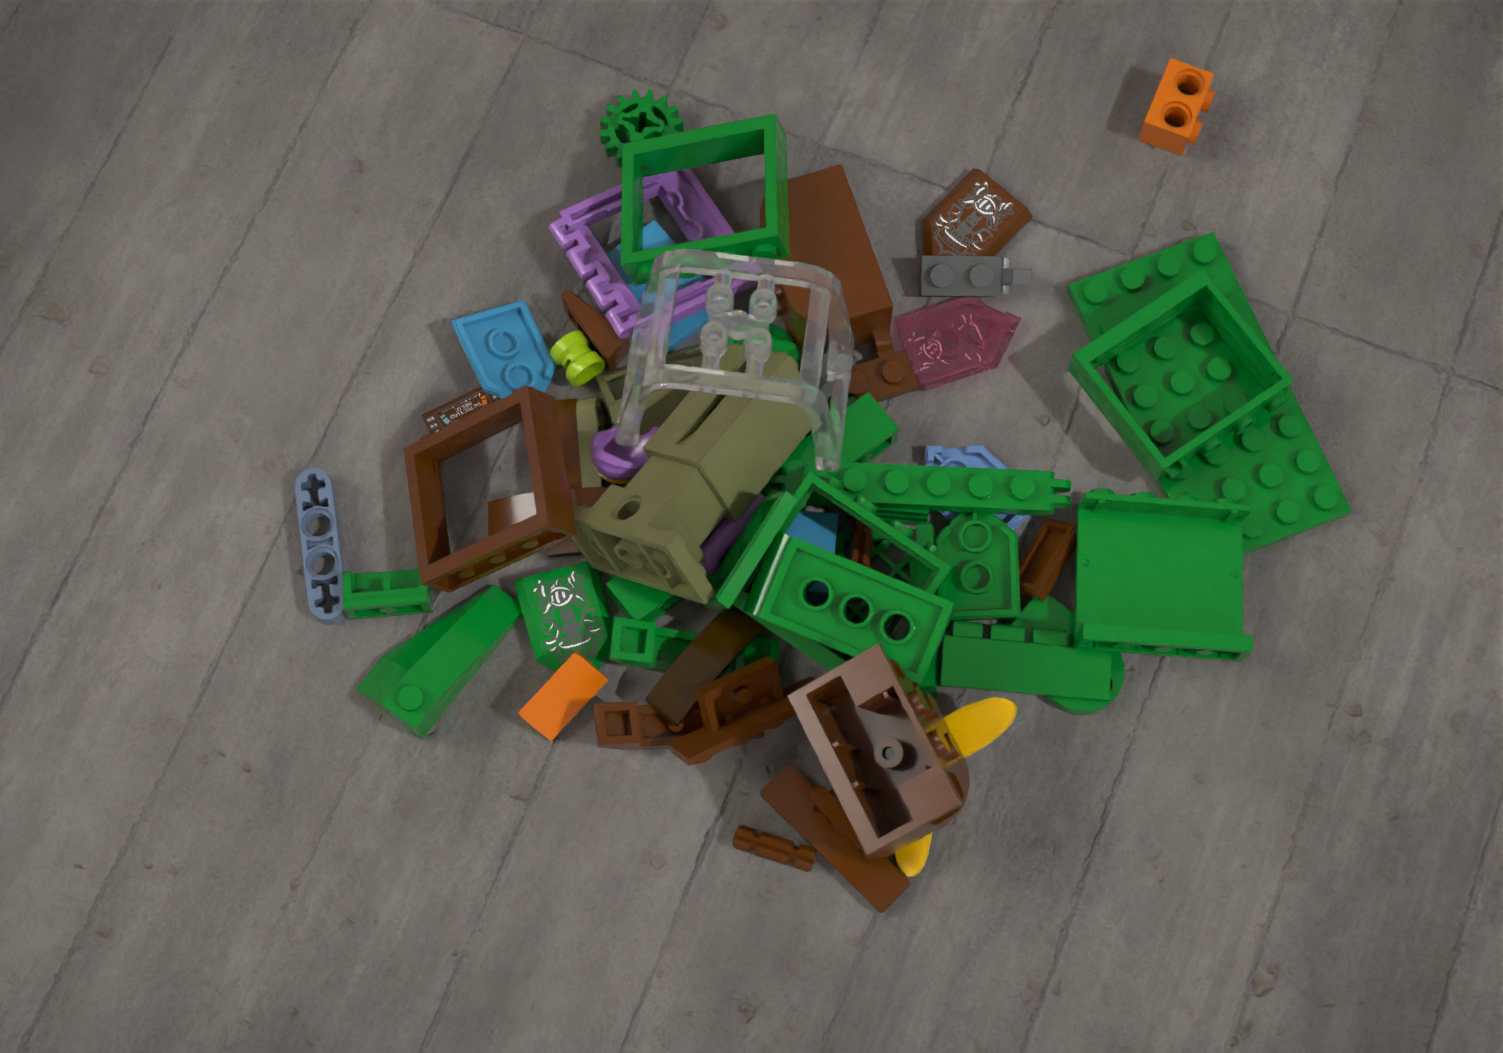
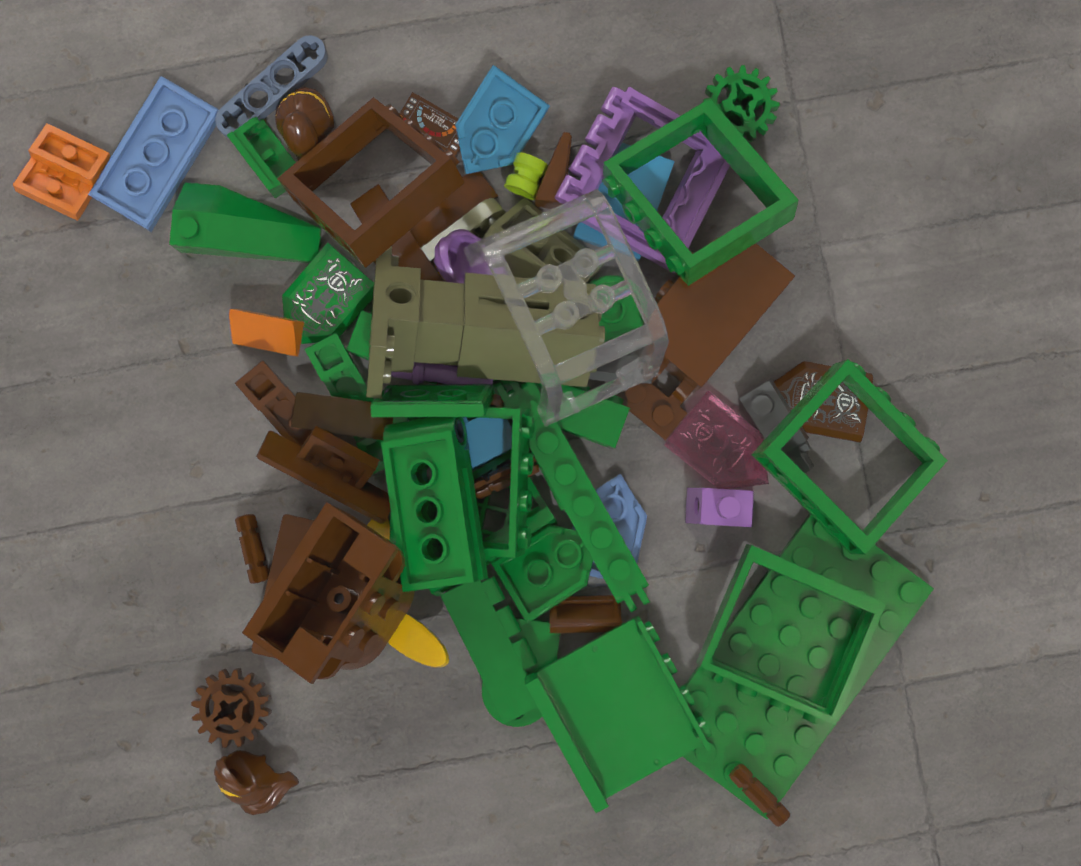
camera: 55 degrees right, 15 degrees up
(258, 805) = (61, 171): none -> orange slope
(306, 701) = (155, 154): none -> medium blue tile
(378, 534) = (303, 120): none -> reddish brown hair
(947, 965) = (222, 697): none -> reddish brown gear
(1019, 364) = (720, 507): none -> medium lavender torso
(1021, 993) = (252, 782): none -> reddish brown hair
(1053, 277) = (811, 496): none -> green window
(1174, 106) = (1023, 495): orange brick -> none
(1323, 497) = (759, 795): none -> reddish brown axle

